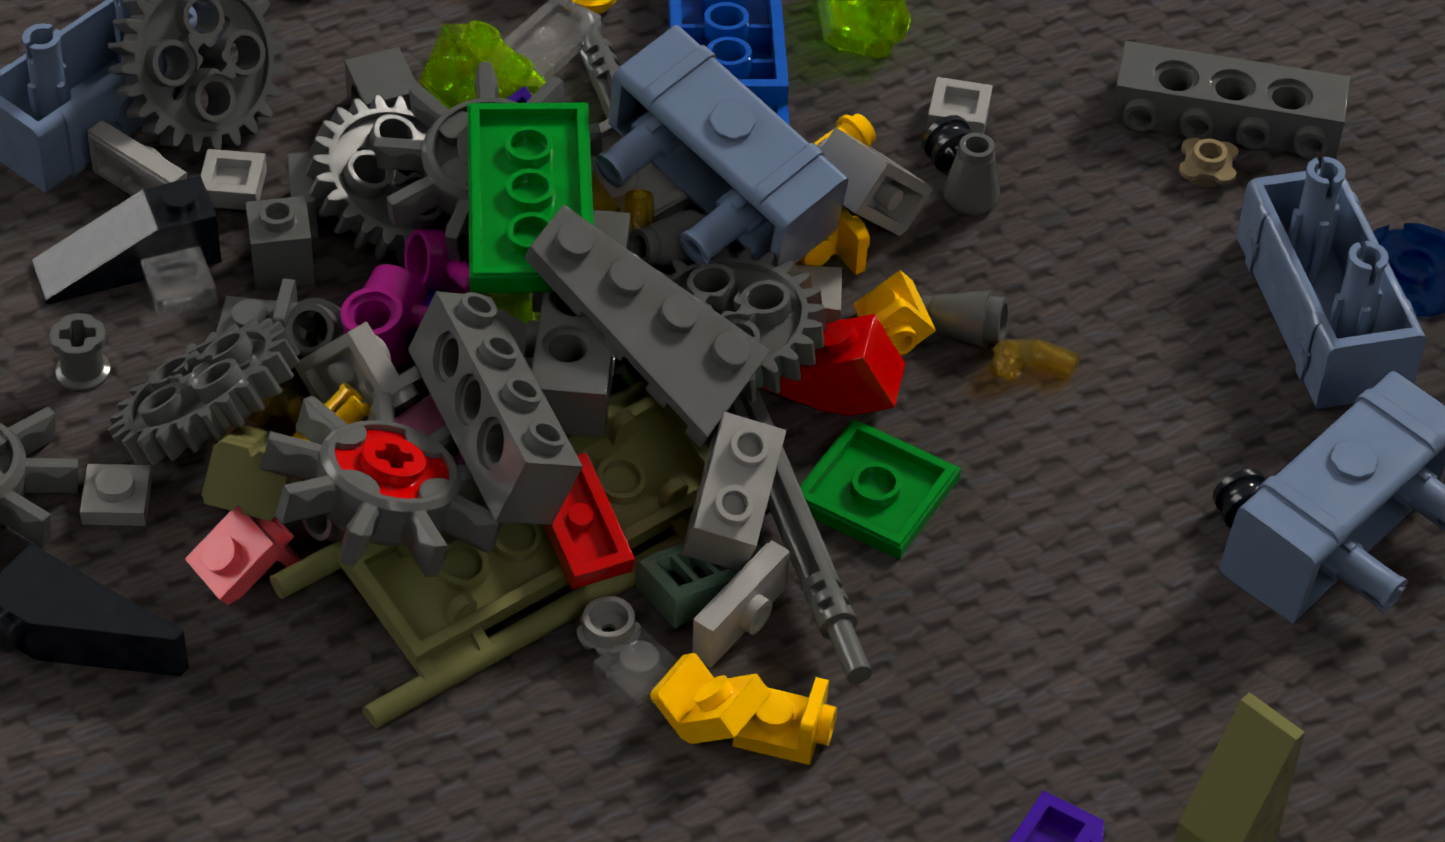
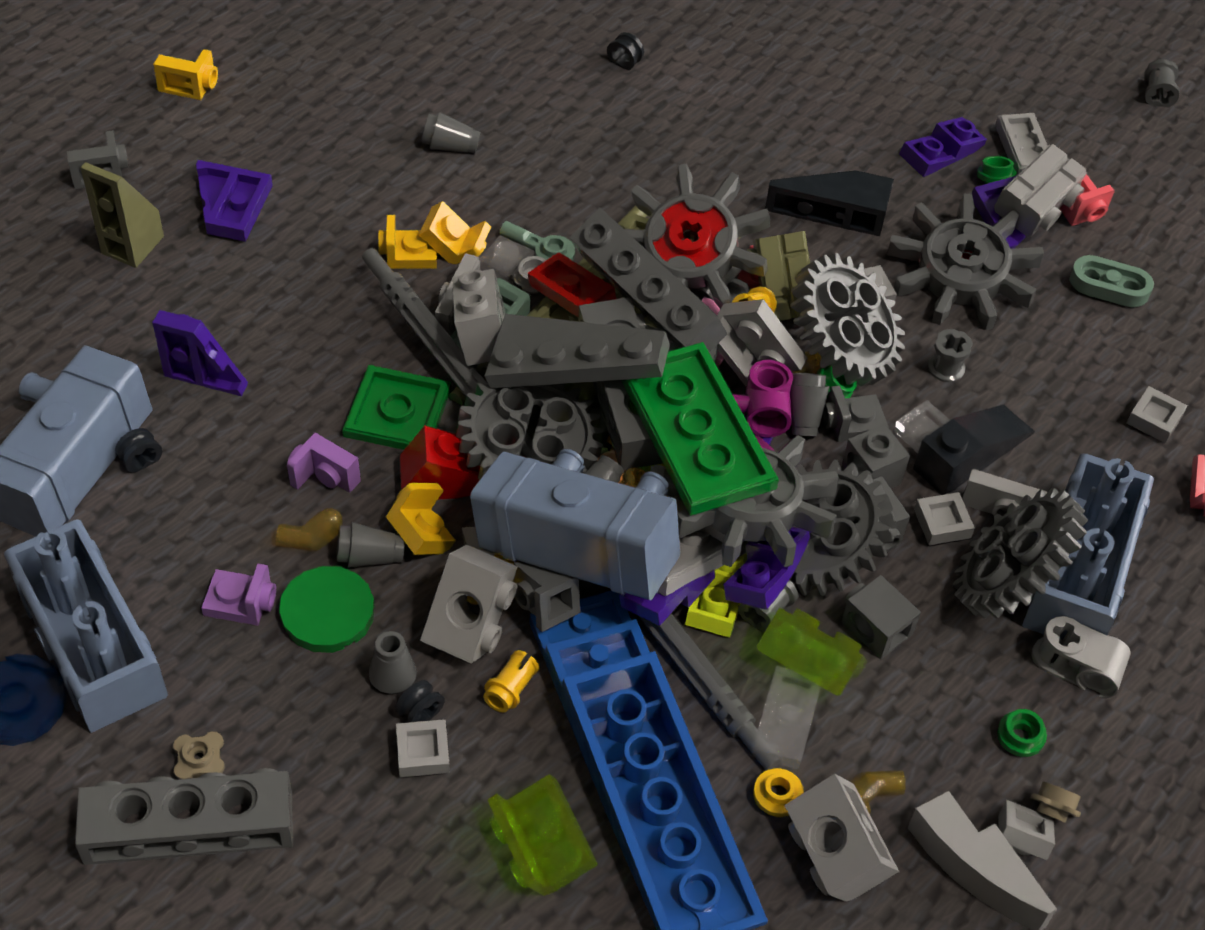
camera: 160 degrees right, 5 degrees up
(565, 663) = (543, 247): none -> sand green plate
(995, 420) = (327, 460): none -> medium lavender bracket
(1036, 271) = (326, 609): none -> green tile
(1134, 305) = (240, 596): none -> medium lavender bracket
(1155, 576) = (194, 355): none -> dark purple wing

